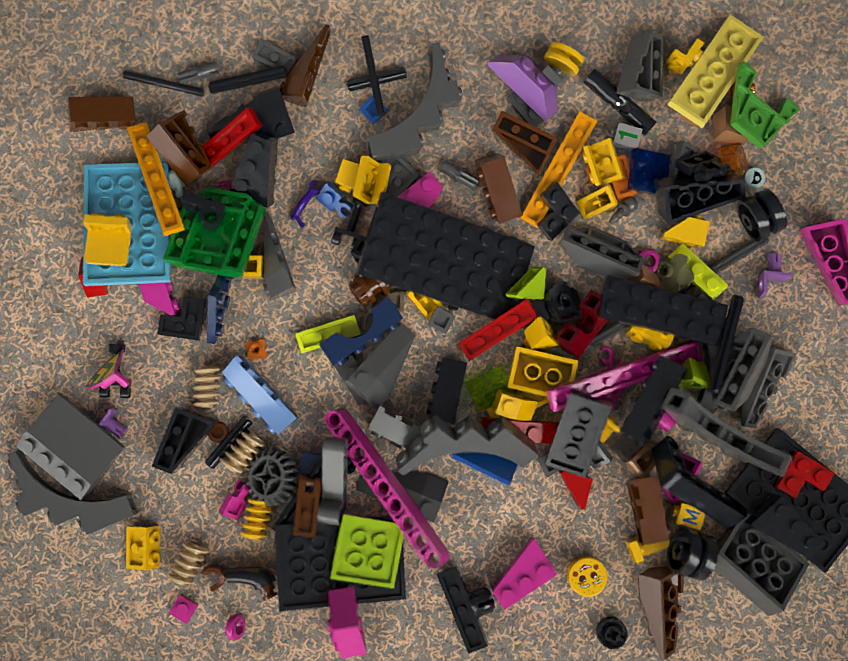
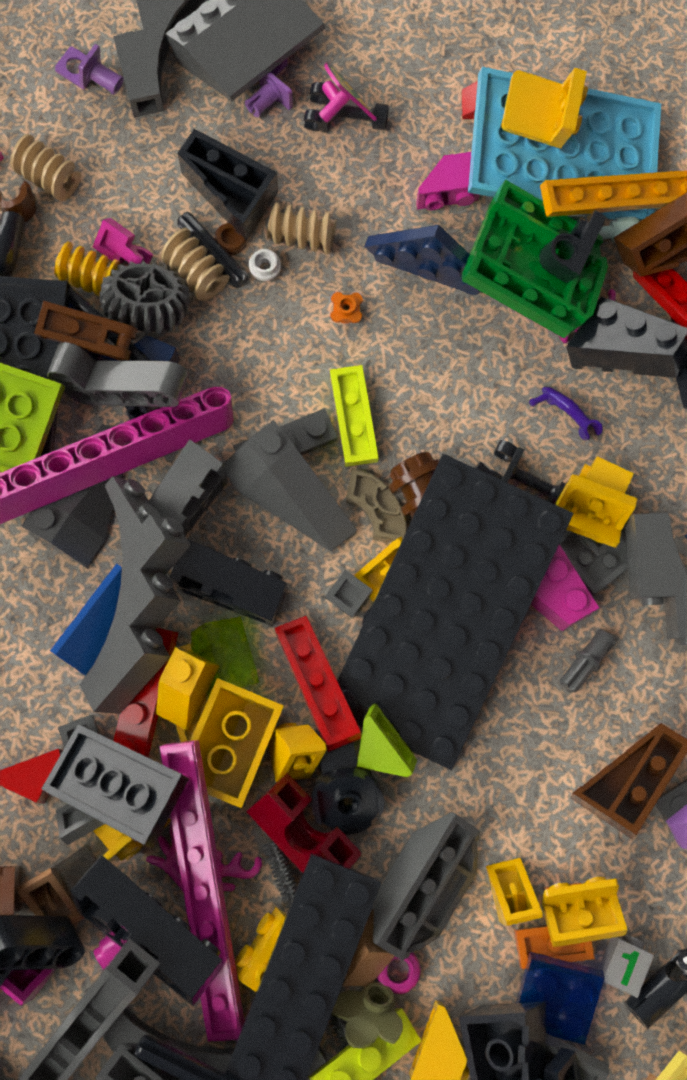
camera: 100 degrees right, 10 degrees down
(111, 548) = (89, 69): none -> medium lavender bracket
(142, 547) = (80, 114): yellow bracket -> none
(188, 325) = (398, 206): black plate -> none
(227, 406) = (264, 256): none -> white plate
(254, 268) = (475, 315): yellow brick -> none
(259, 395) = (276, 300): medium blue wedge -> none
(276, 270) = (471, 352): dark grey wedge -> none
(332, 199) = (567, 453): blue plate -> none
(384, 317) = (366, 498): dark blue arch -> none
(498, 187) = (557, 720): reddish brown wedge -> none
(559, 166) = (580, 834): light orange plate -> none
(561, 211) = (506, 826): black plate -> none
(627, 206) = (500, 949): dark grey bar -> none
(696, 375) = (181, 1022): lime slope -> none

